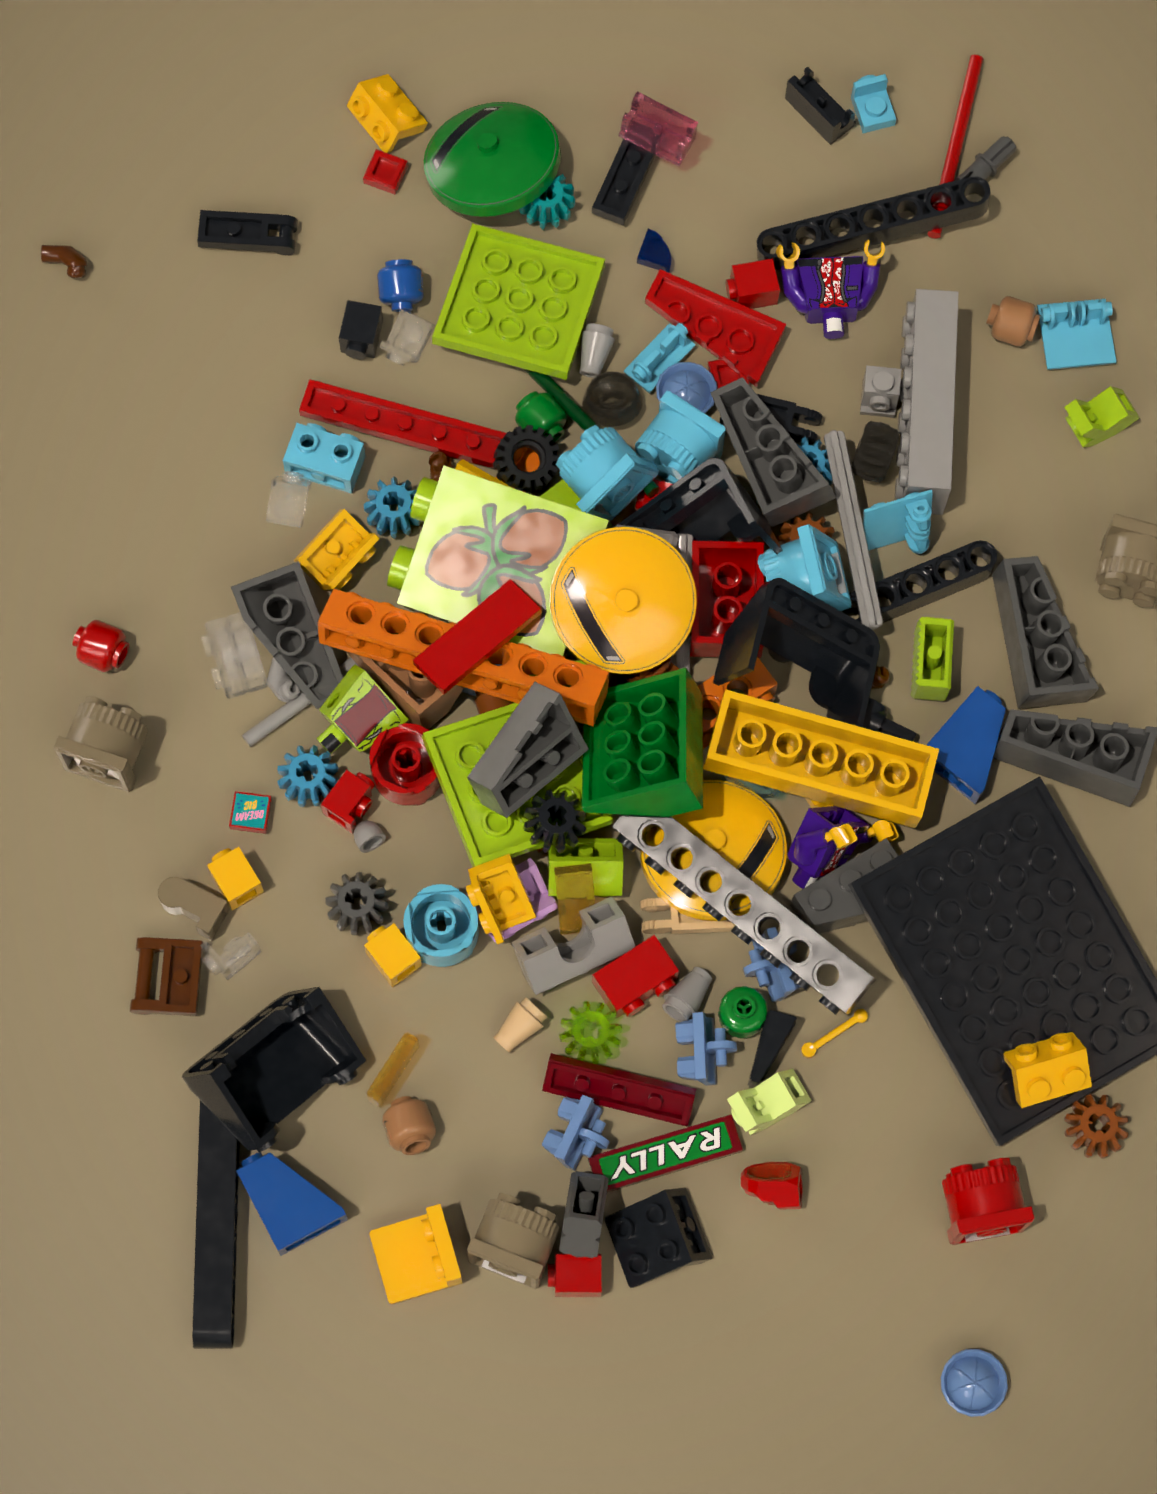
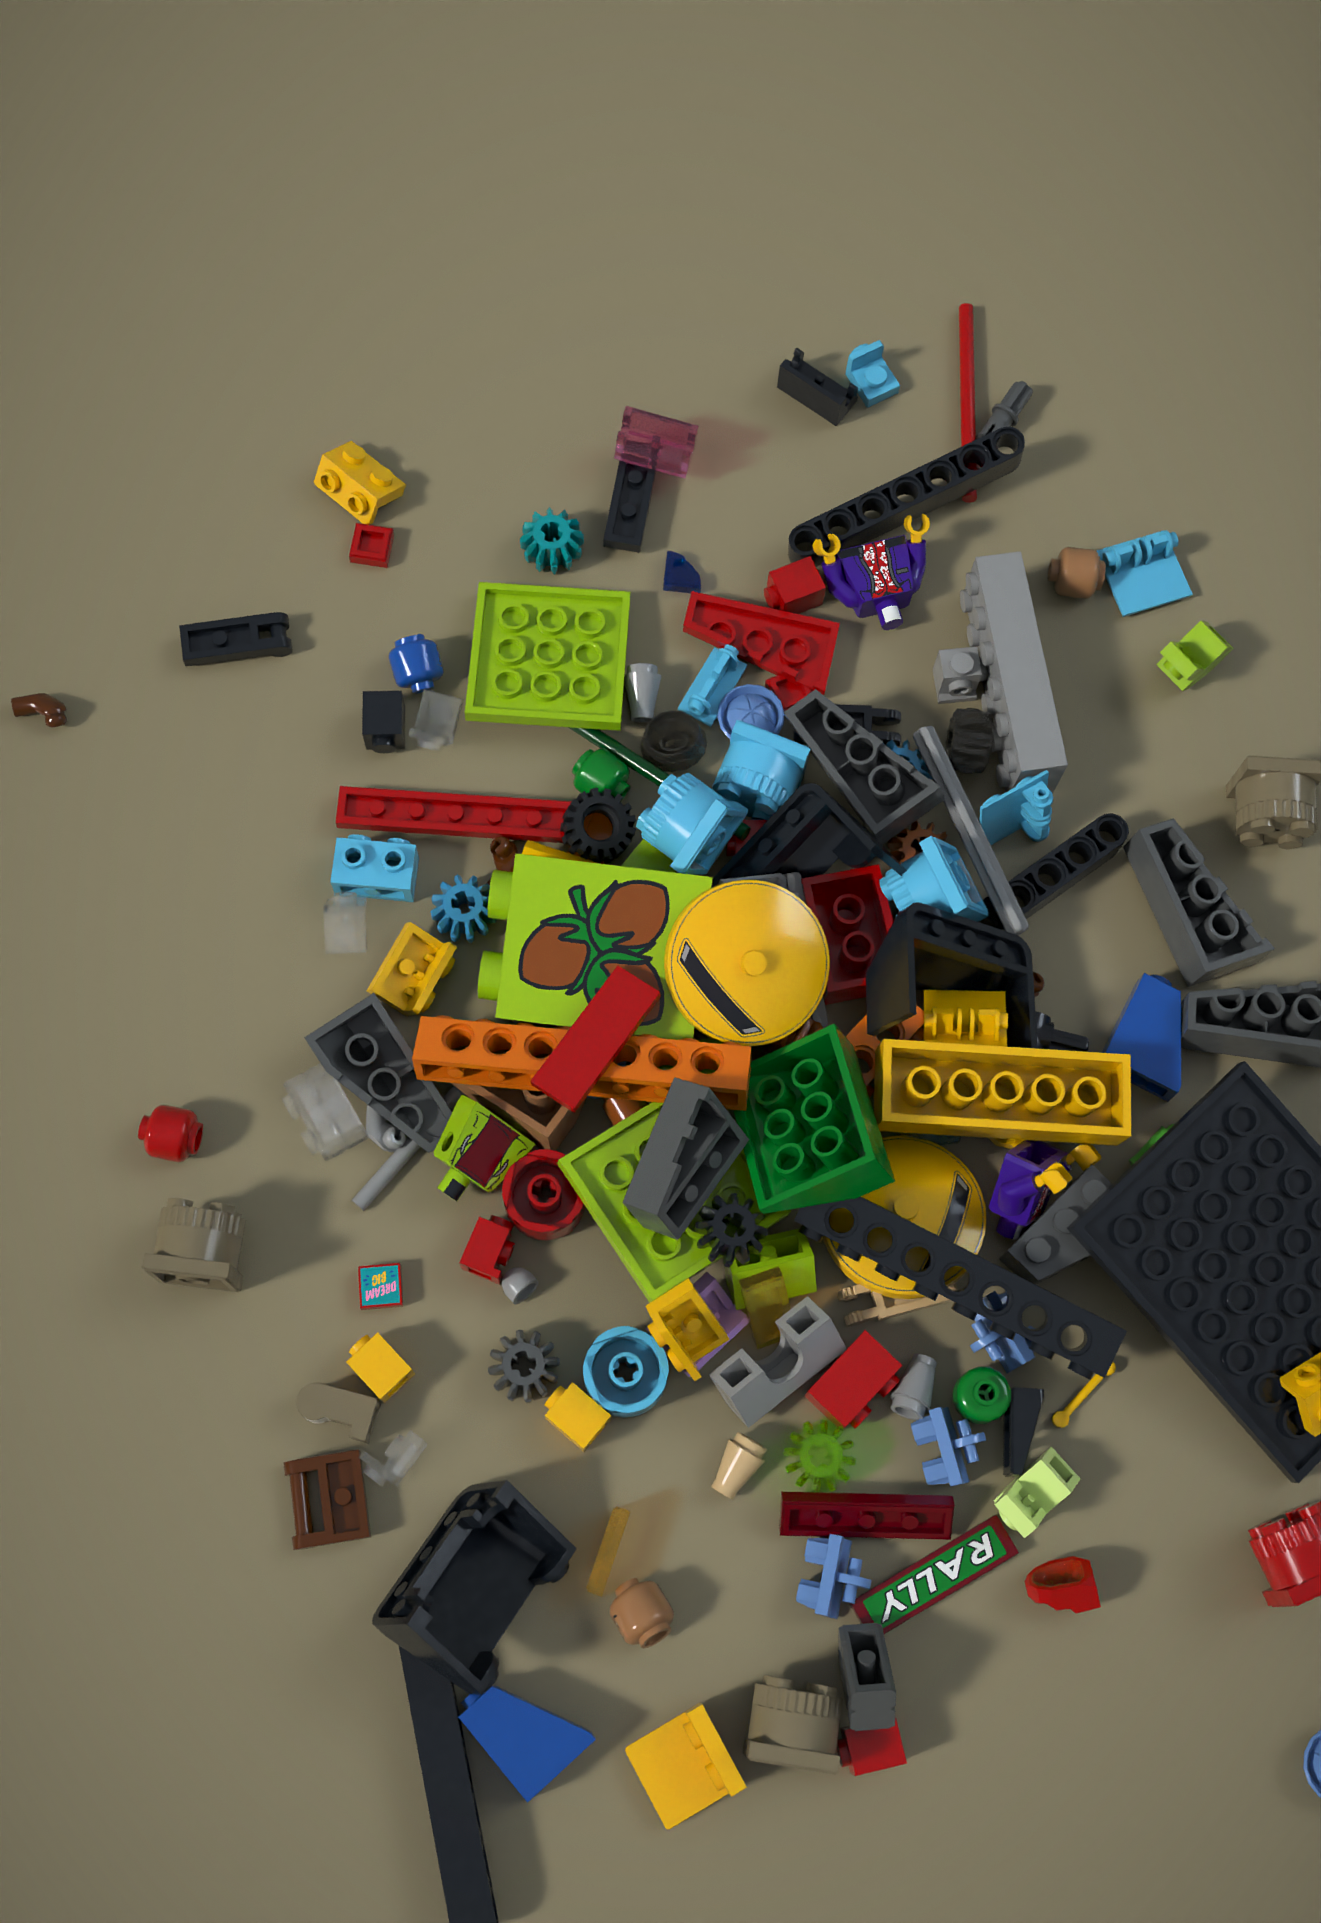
camera: 15 degrees left, 0 degrees up
(295, 781) = (430, 1244): dark azure gear -> none
(492, 159) = (485, 509): green dish -> none
(657, 1236) = (951, 1678): black bracket -> none
(806, 688) = (965, 1017): none -> yellow hinge
(932, 659) = (1087, 953): lime brick -> none

